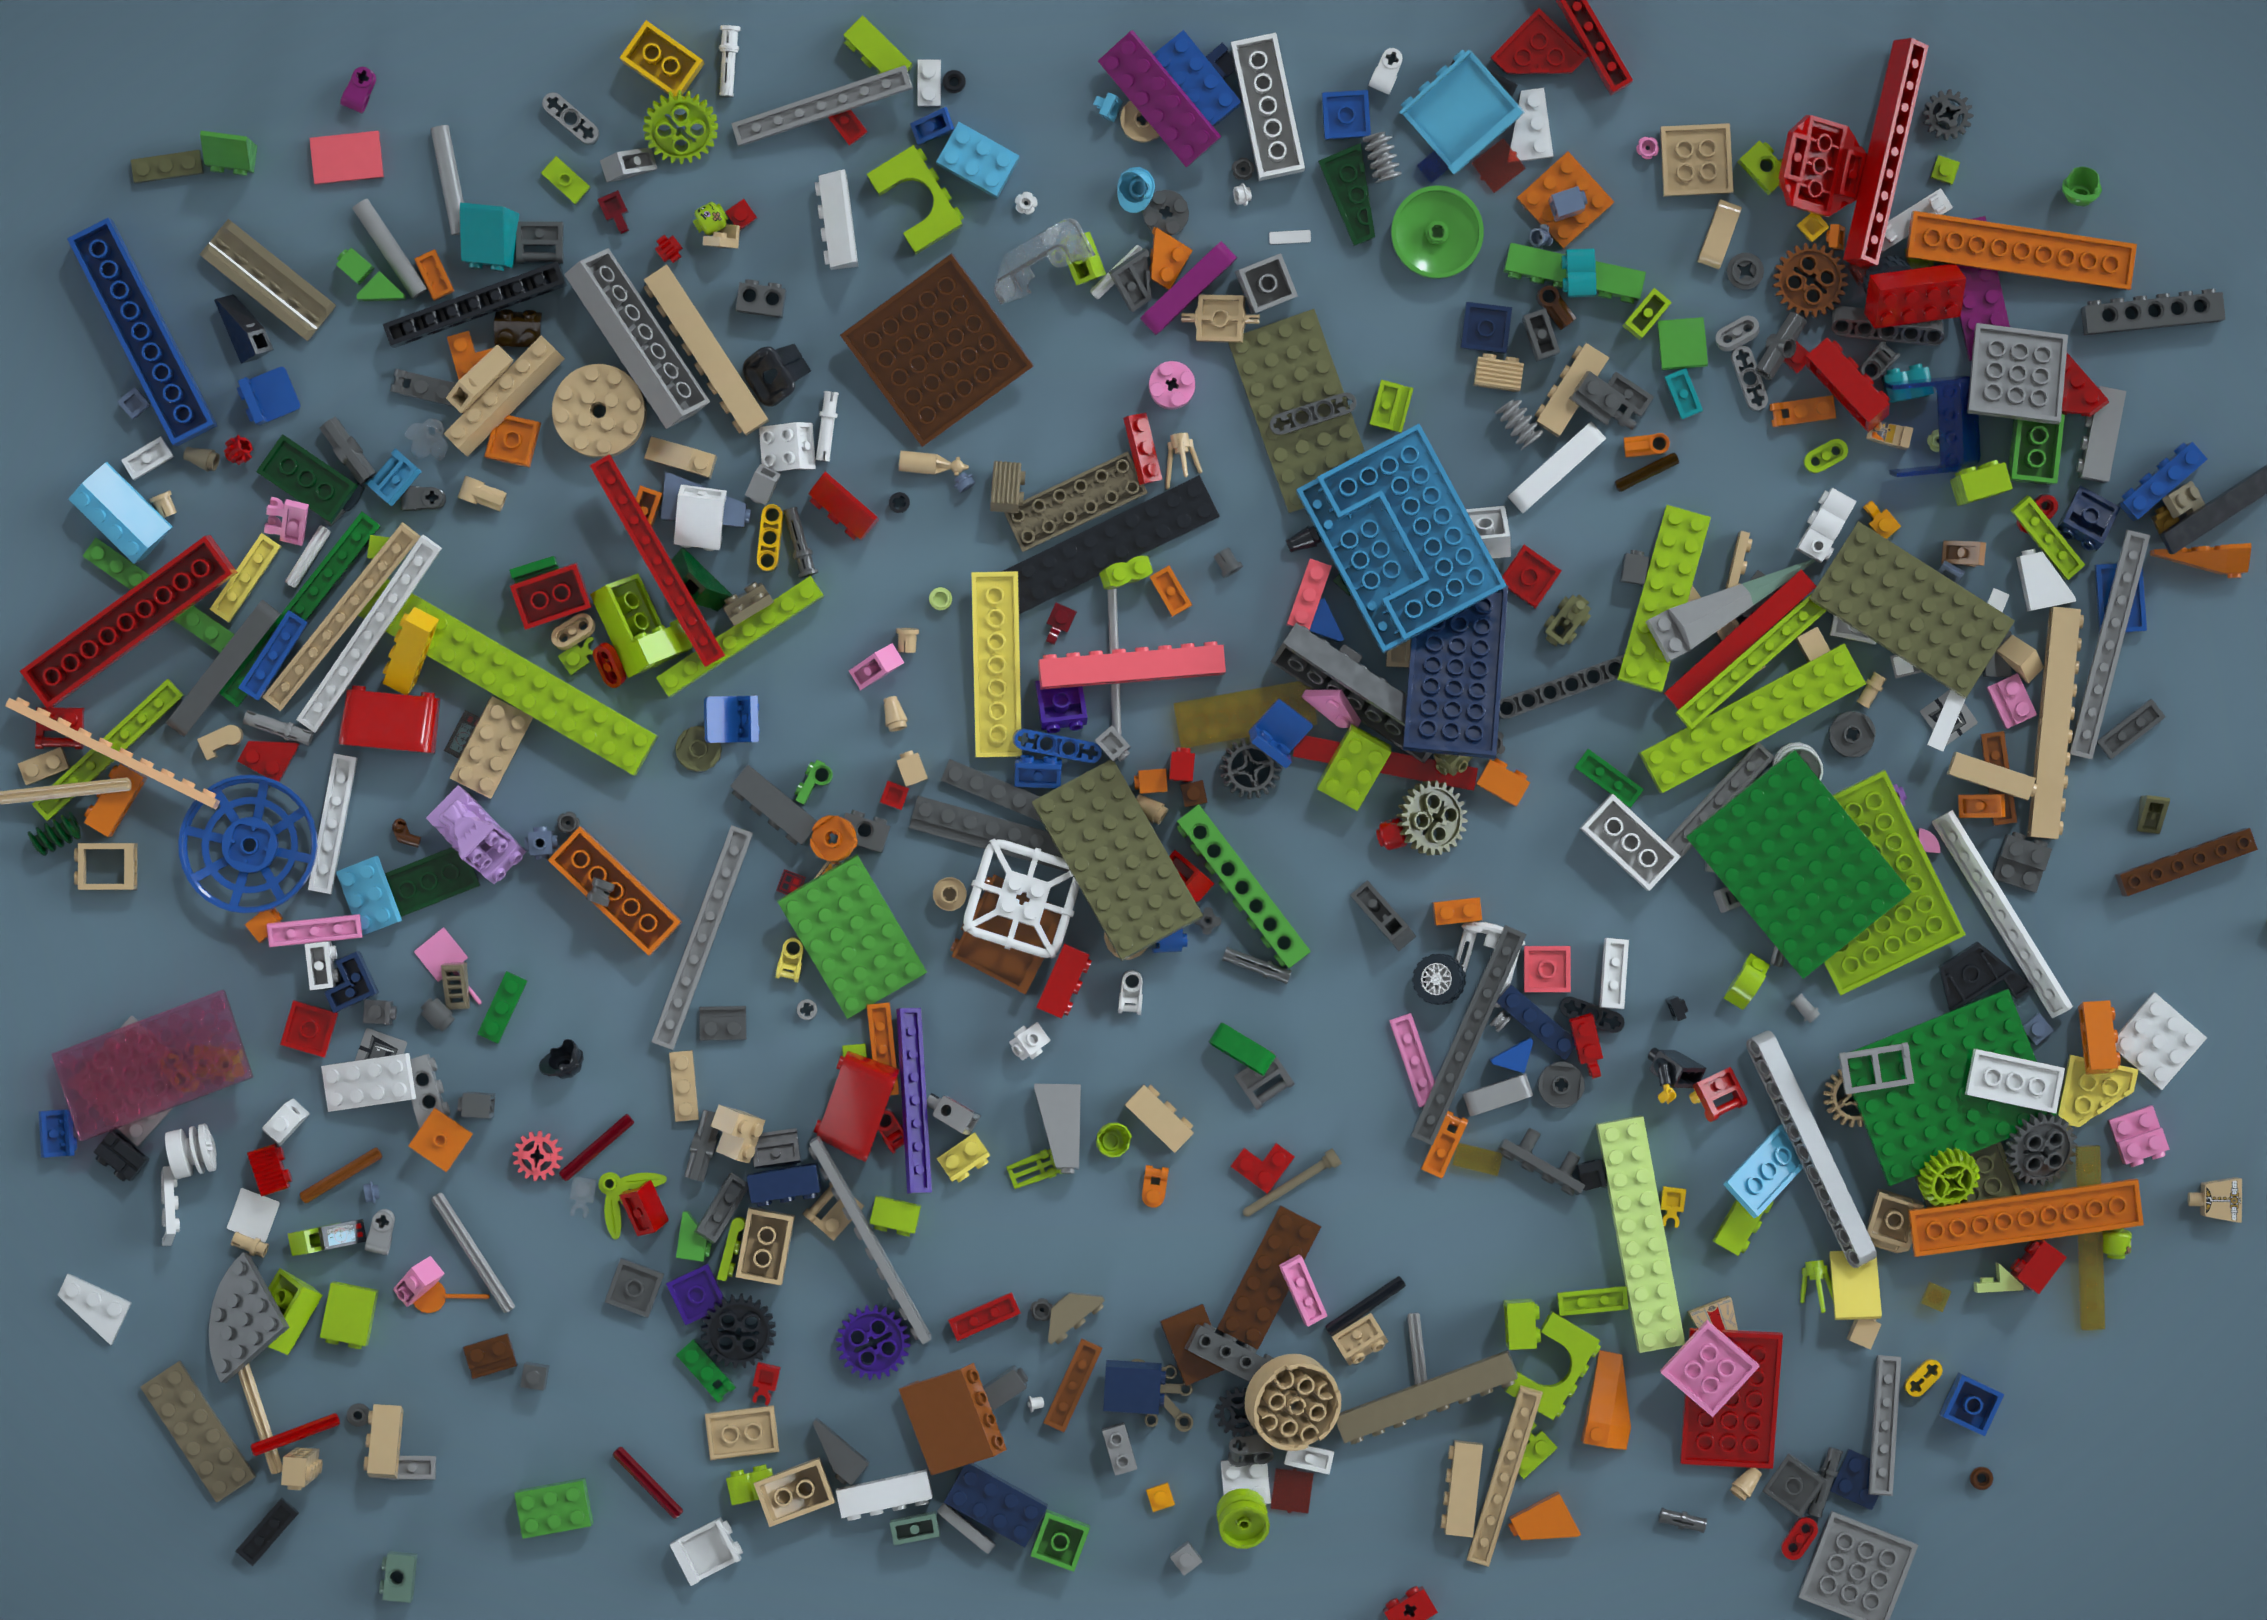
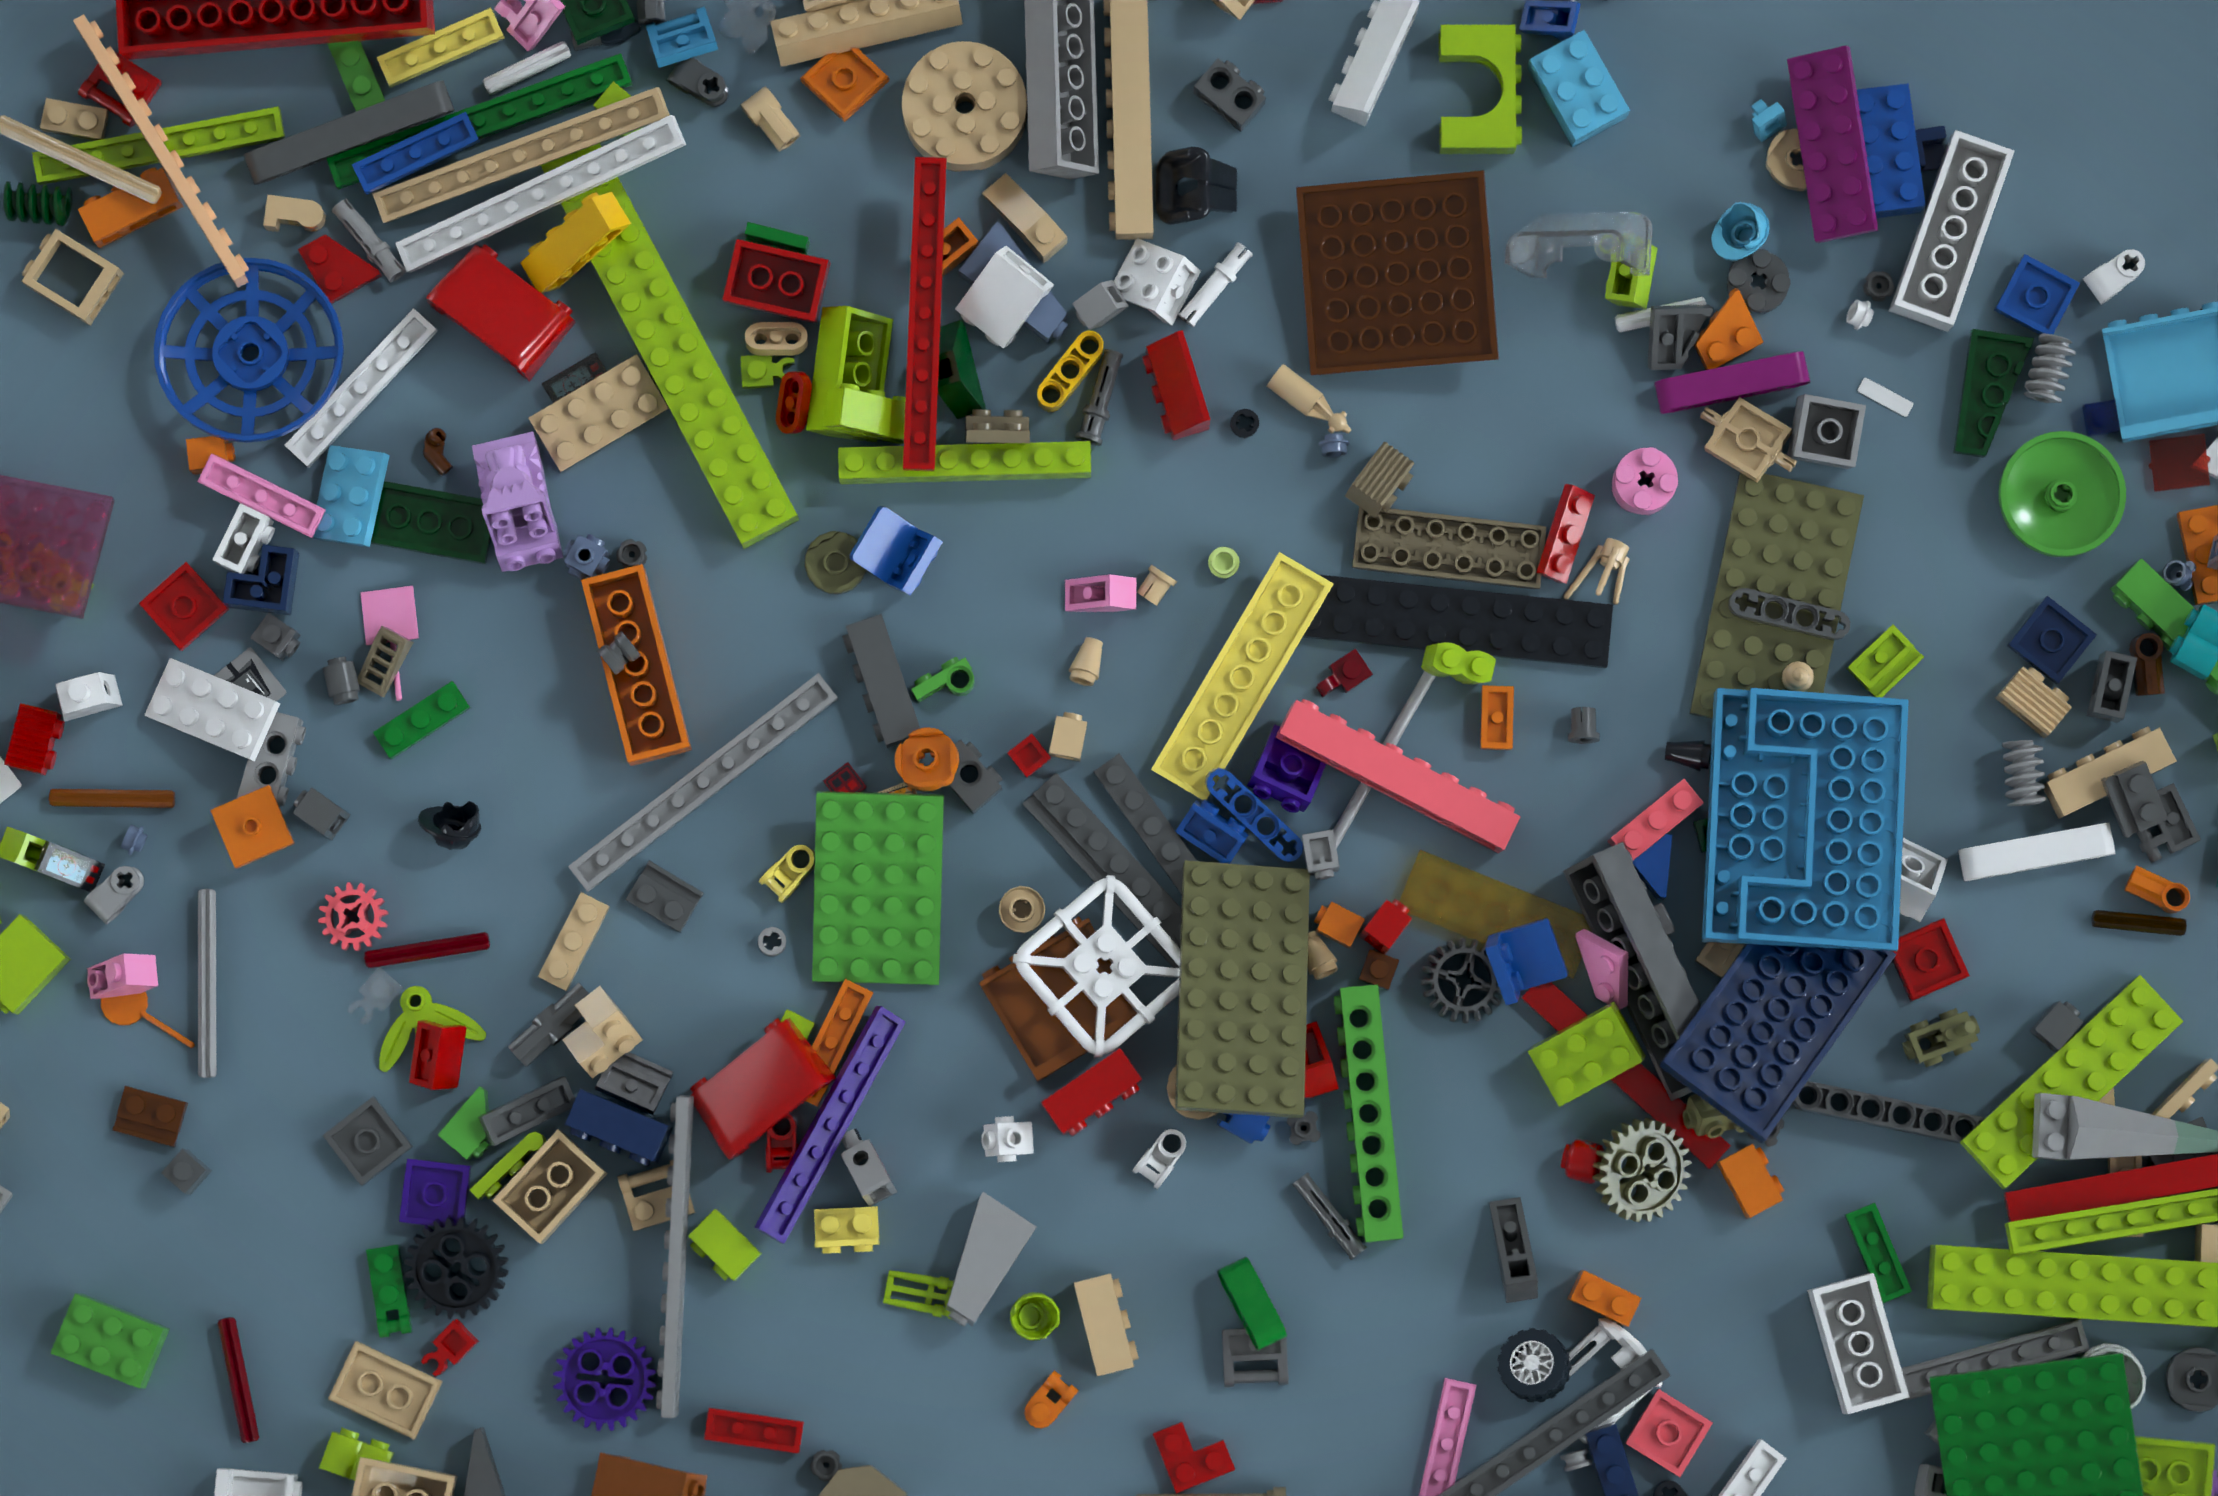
camera: 25 degrees right, 5 degrees down
(1027, 209) = (1599, 179): white plate -> none
(1342, 450) = (1797, 676): none -> tan plate

